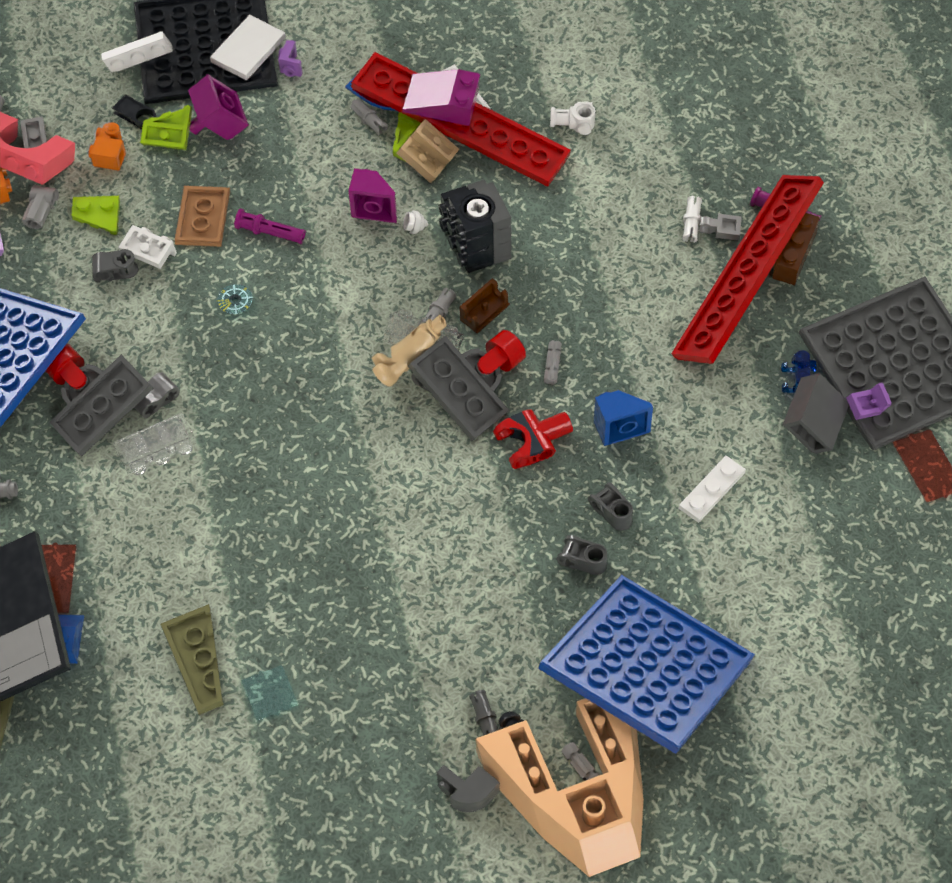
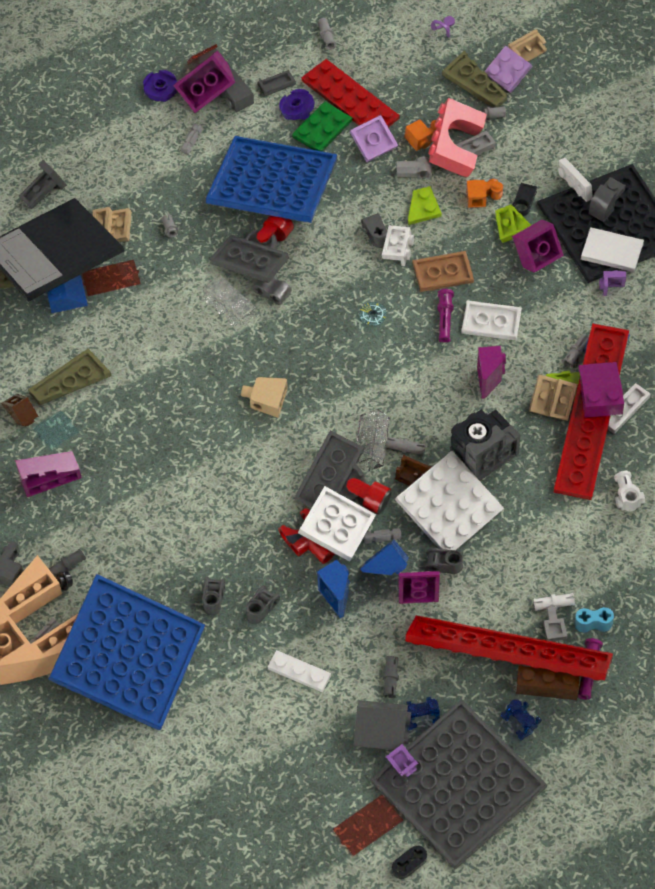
camera: 75 degrees right, 0 degrees up
(183, 29) = (604, 199): none -> dark grey brick
(223, 727) = (20, 409): none -> reddish brown slope
(292, 186) = (491, 320): none -> white tile
(314, 434) = (266, 395): none -> tan torso
(340, 710) = (47, 472): none -> wedge
(407, 350) = (346, 427): tan piece -> none
(414, 222) = (484, 405): white plate -> none
(533, 395) = (337, 523): none -> white plate
(538, 281) = (449, 503): none -> white plate
(599, 358) = (387, 560): none -> blue slope
(608, 310) = (442, 561): none -> dark grey piece
(640, 332) = (418, 587): none -> magenta slope
(727, 187) = (594, 619): none -> medium azure axle
(746, 396) = (390, 677): none -> dark grey pin
(839, 276) = (523, 717): none -> clear blue piece

